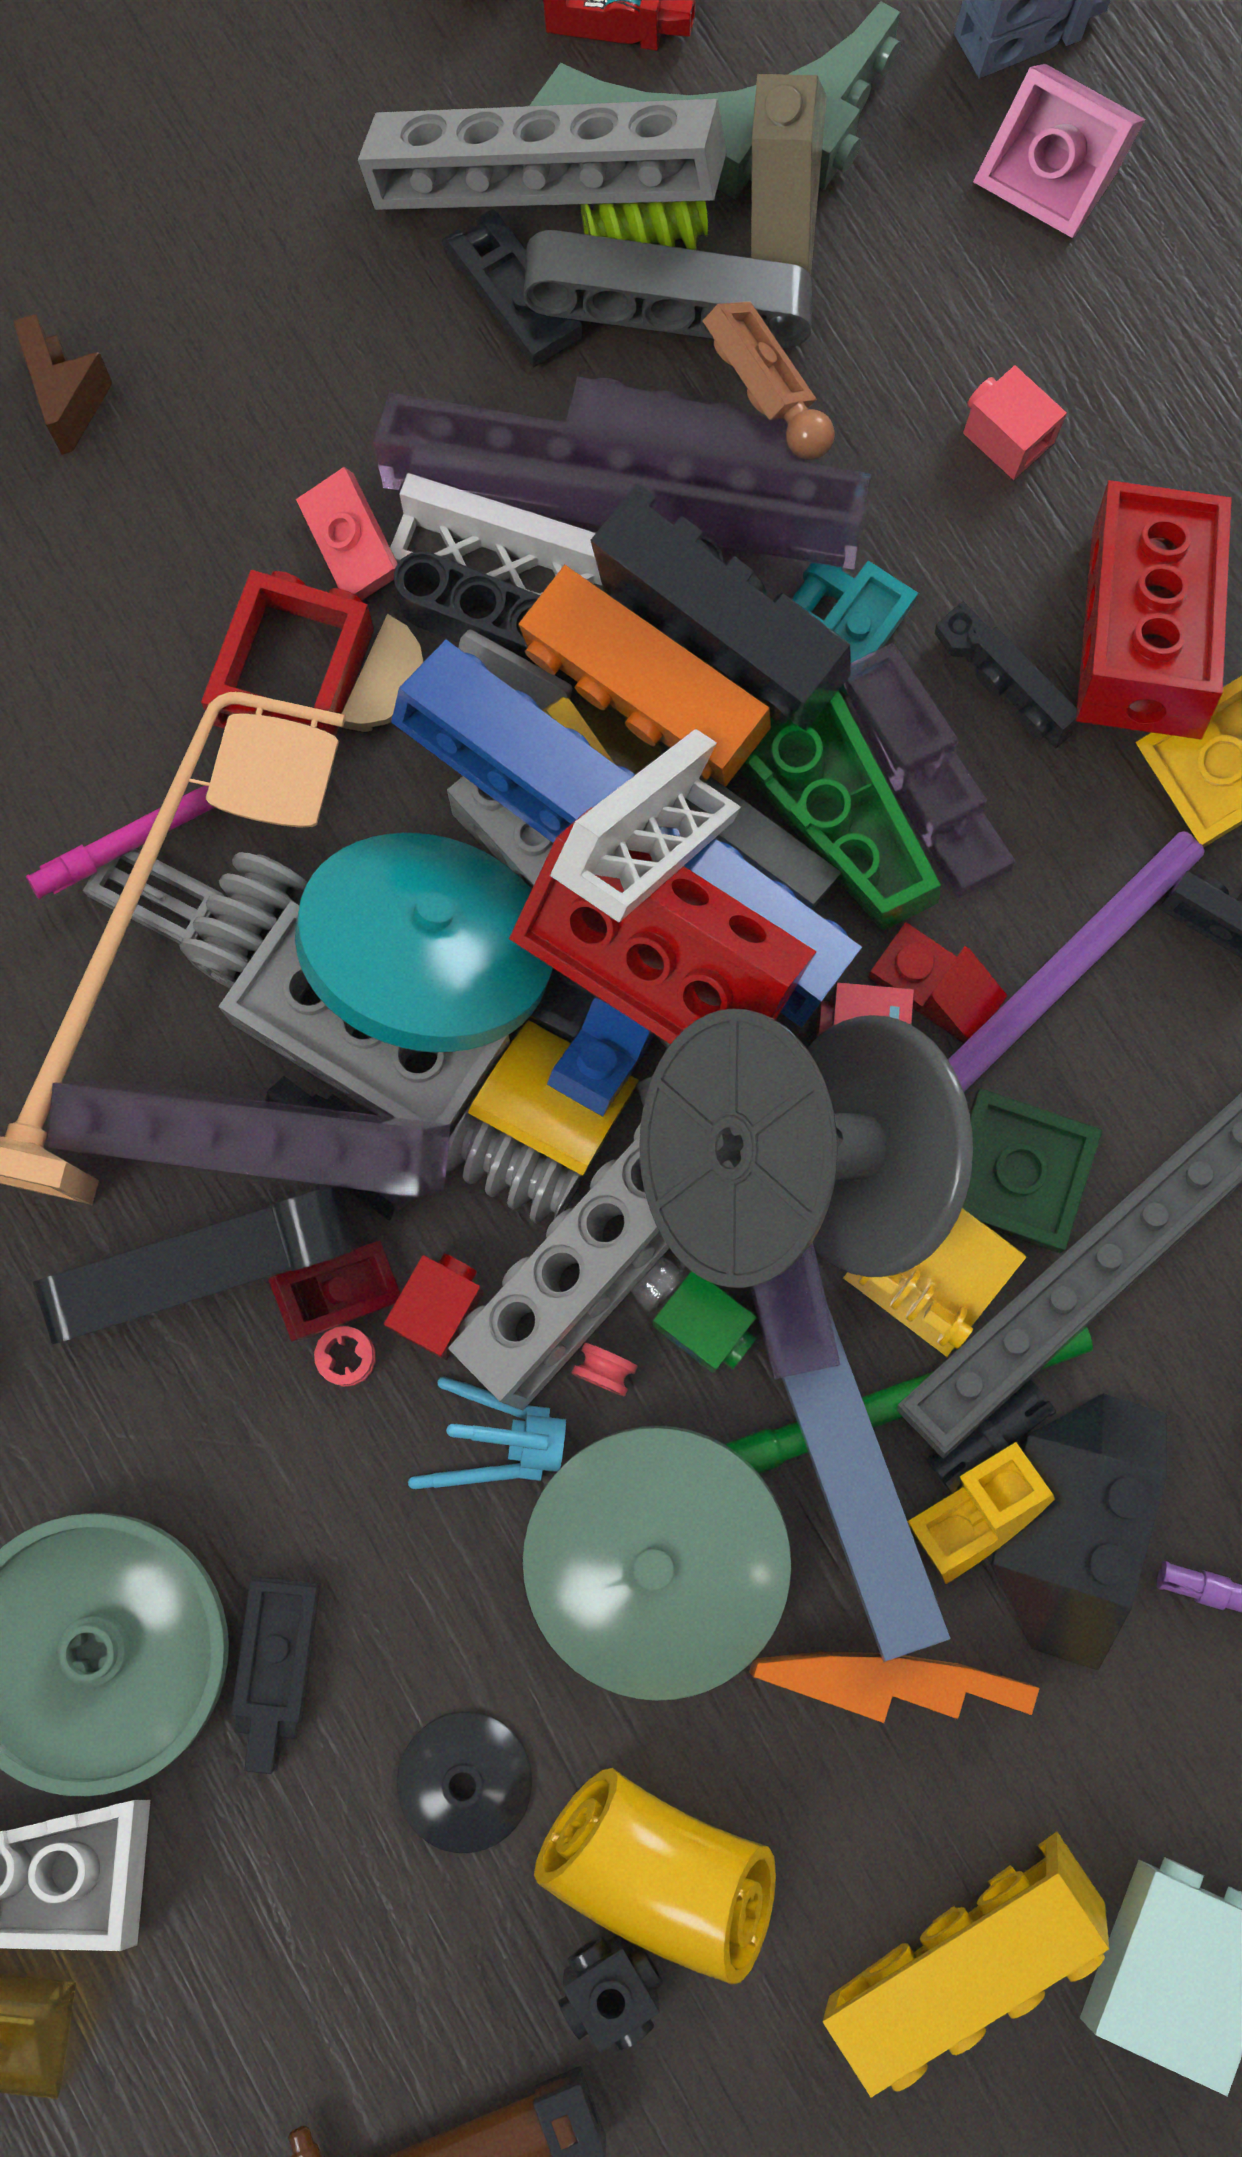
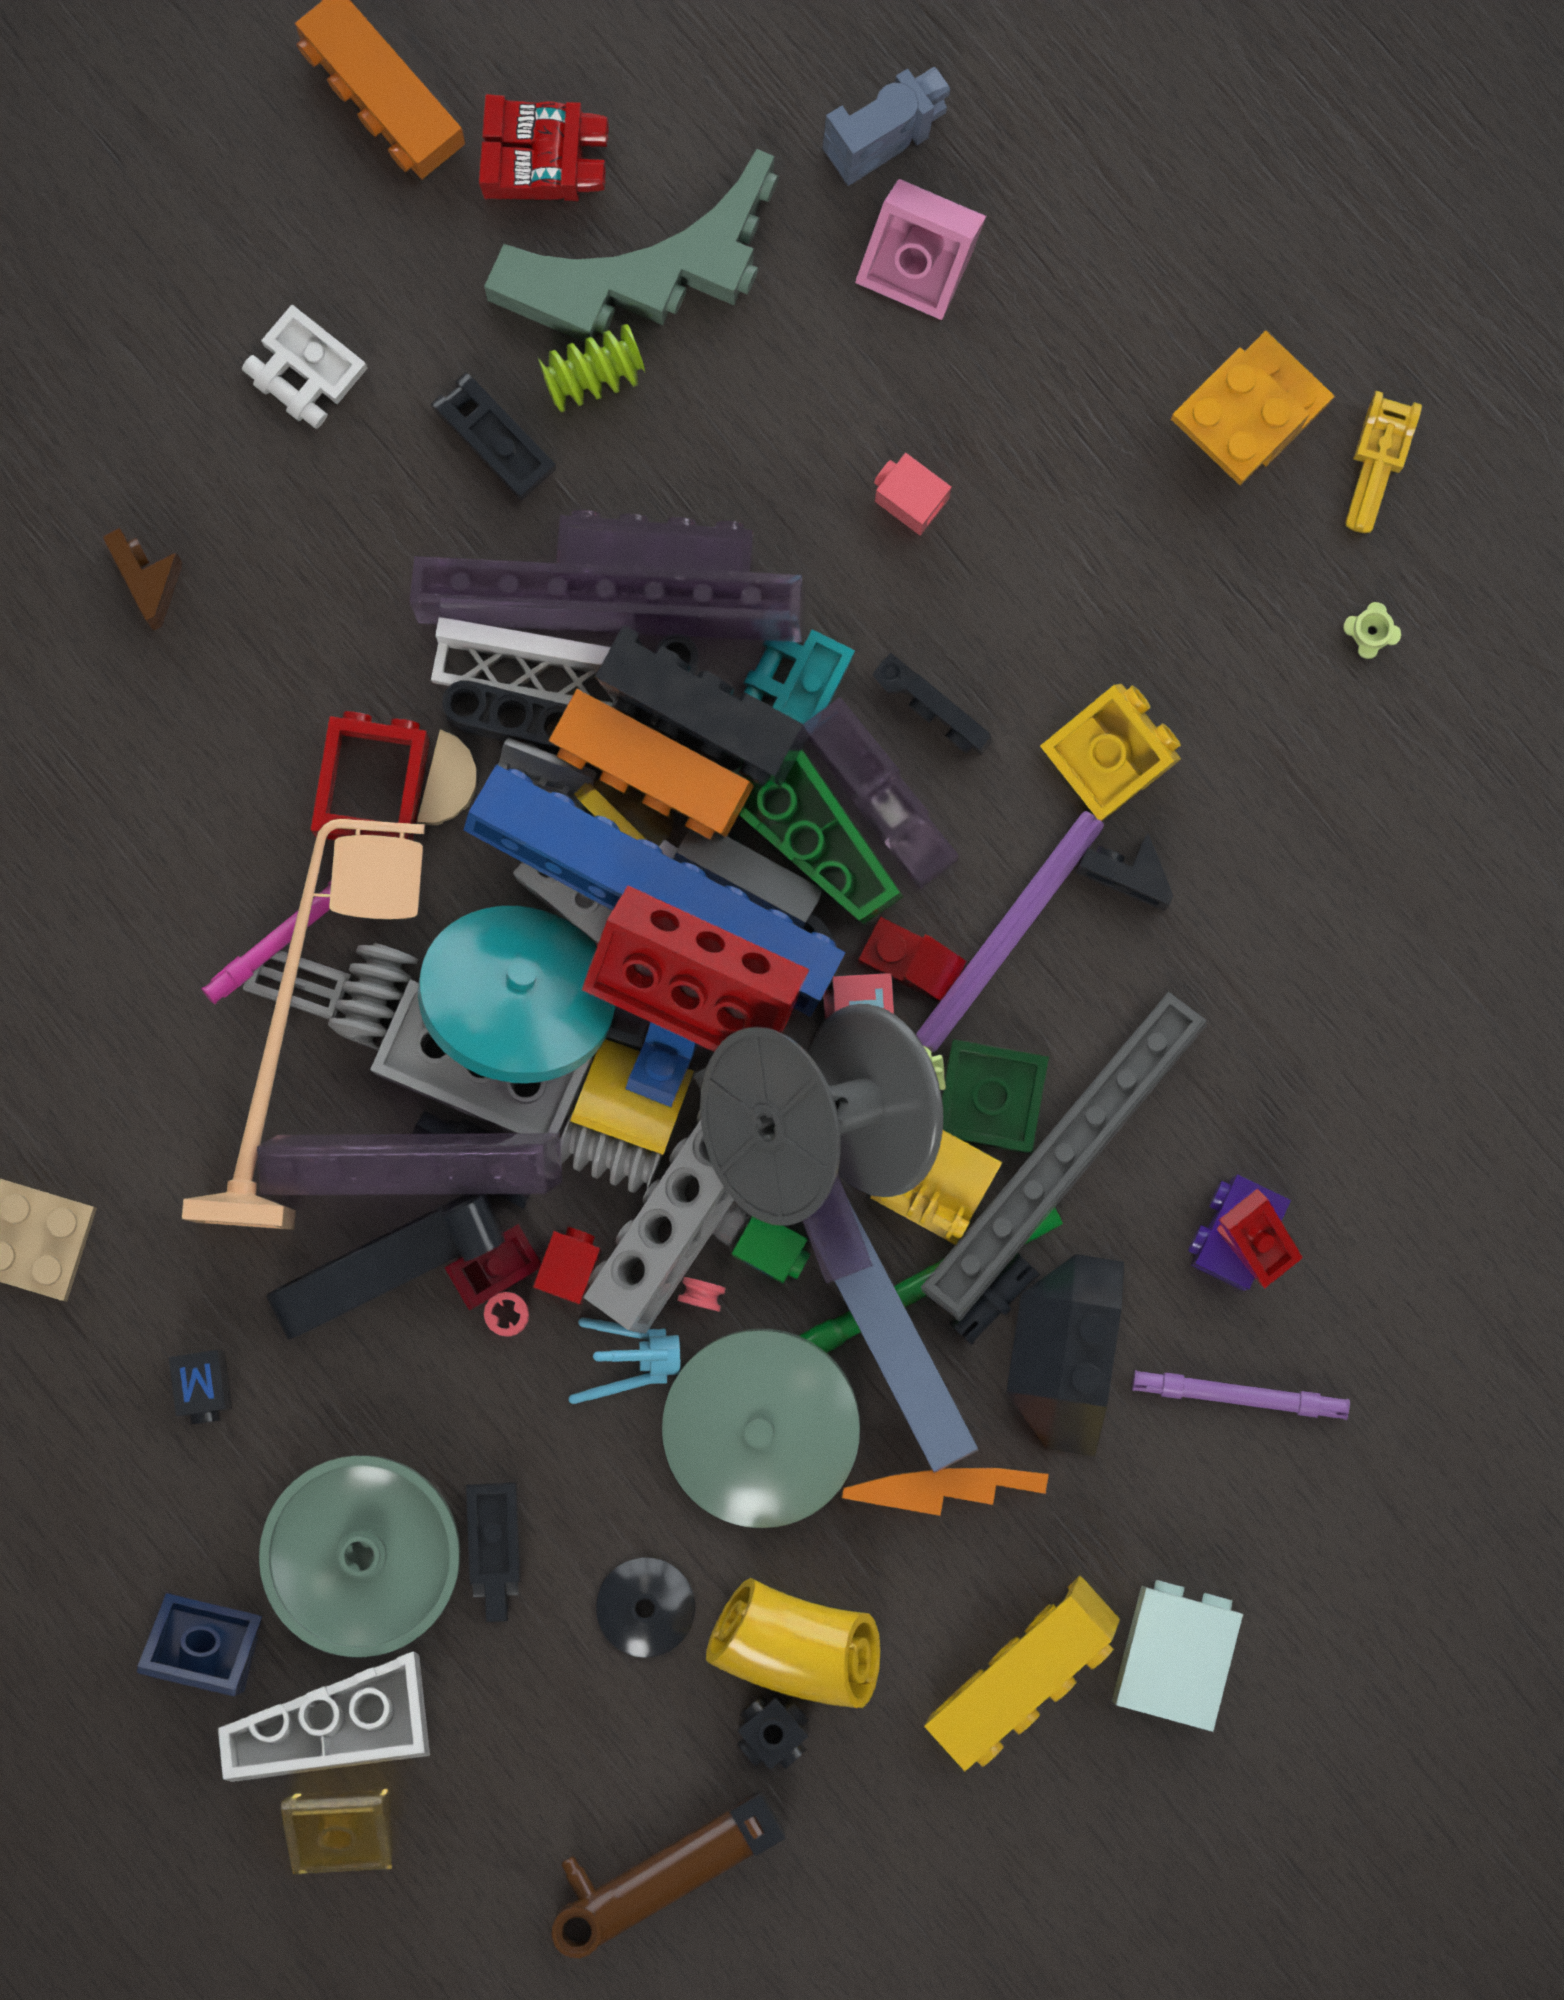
camera: 10 degrees left, 5 degrees up
(311, 164) = (312, 354): none -> white plate
(348, 534) = (398, 668): coral plate -> none
(545, 155) = (503, 335): light grey brick -> none
(631, 821) = (662, 887): white fence -> none
(660, 285) = (621, 426): dark grey beam -> none
(770, 376) = (712, 496): nougat plate -> none
(786, 167) = (701, 319): dark tan slope -> none
(982, 1515) = (992, 1360): yellow slope -> none
(1171, 542) = (1038, 643): red brick -> none

